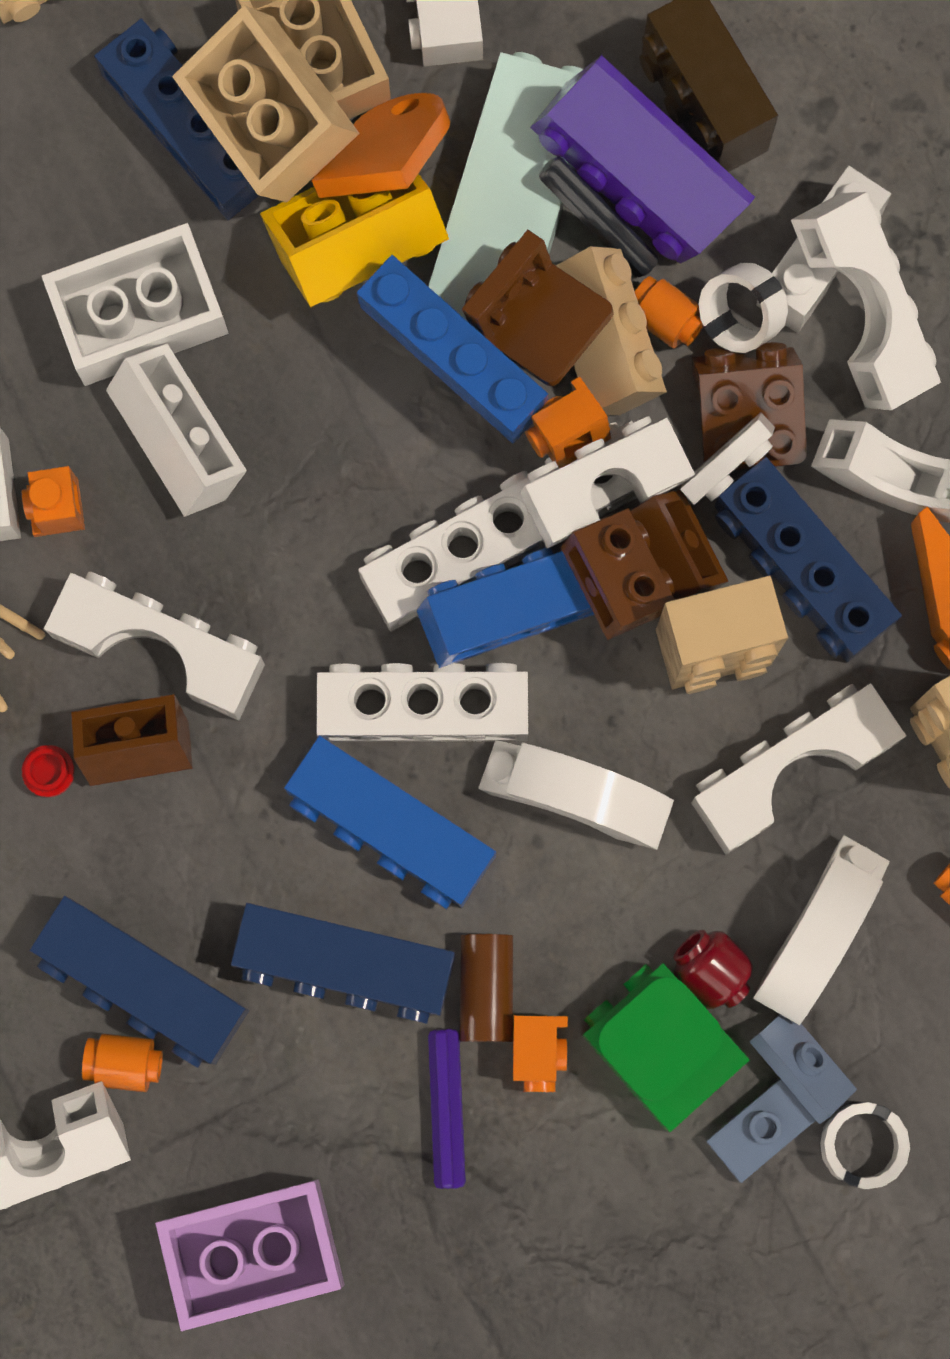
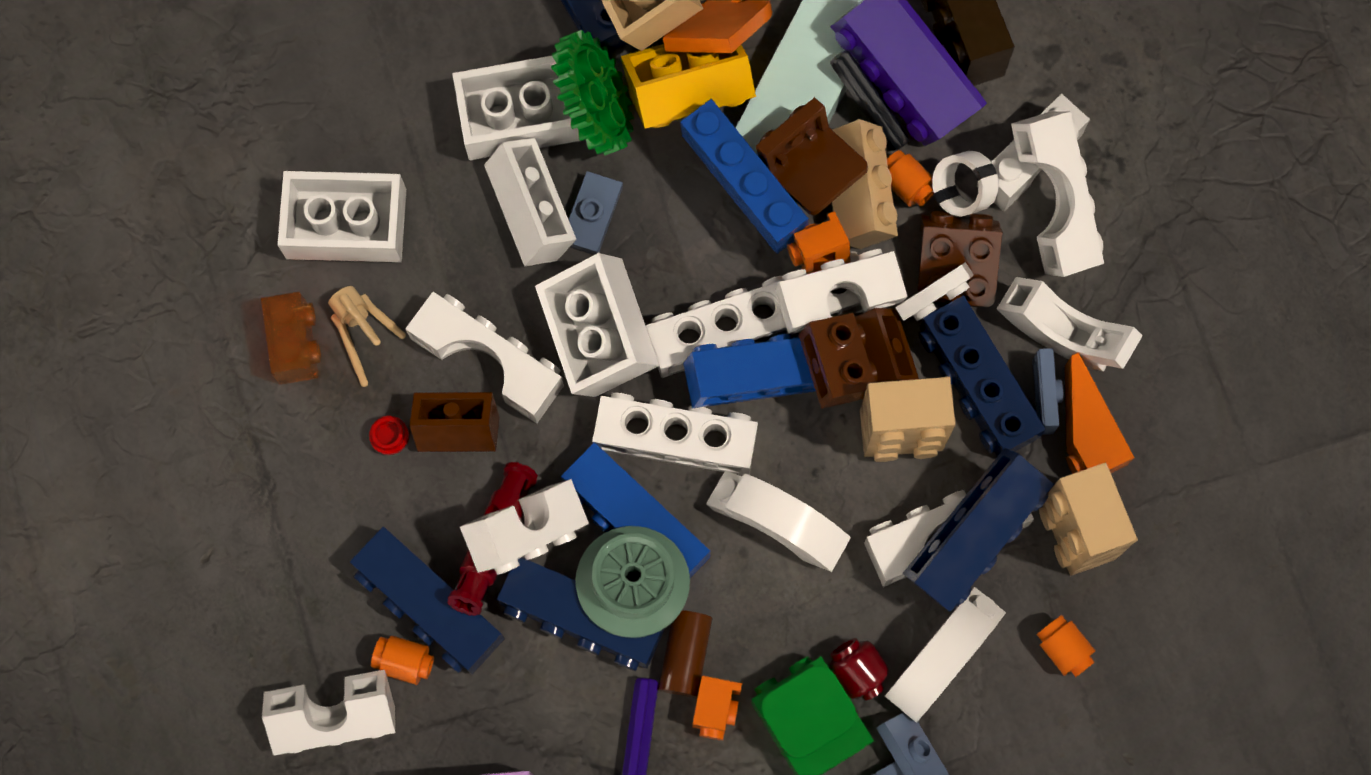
camera: 10 degrees right, 5 degrees down
(53, 502) = (430, 239): orange brick -> none
(211, 878) = (473, 585): none -> dark red piece
(223, 889) = (501, 537): none -> white arch
(232, 270) = (592, 92): none -> green gear
(262, 426) = (594, 211): none -> sand blue plate
(294, 580) = (596, 325): none -> white brick
(408, 945) = (627, 606): none -> sand green piece
(839, 764) = (979, 529): none -> dark blue brick
(894, 561) = (1047, 389): none -> sand blue plate

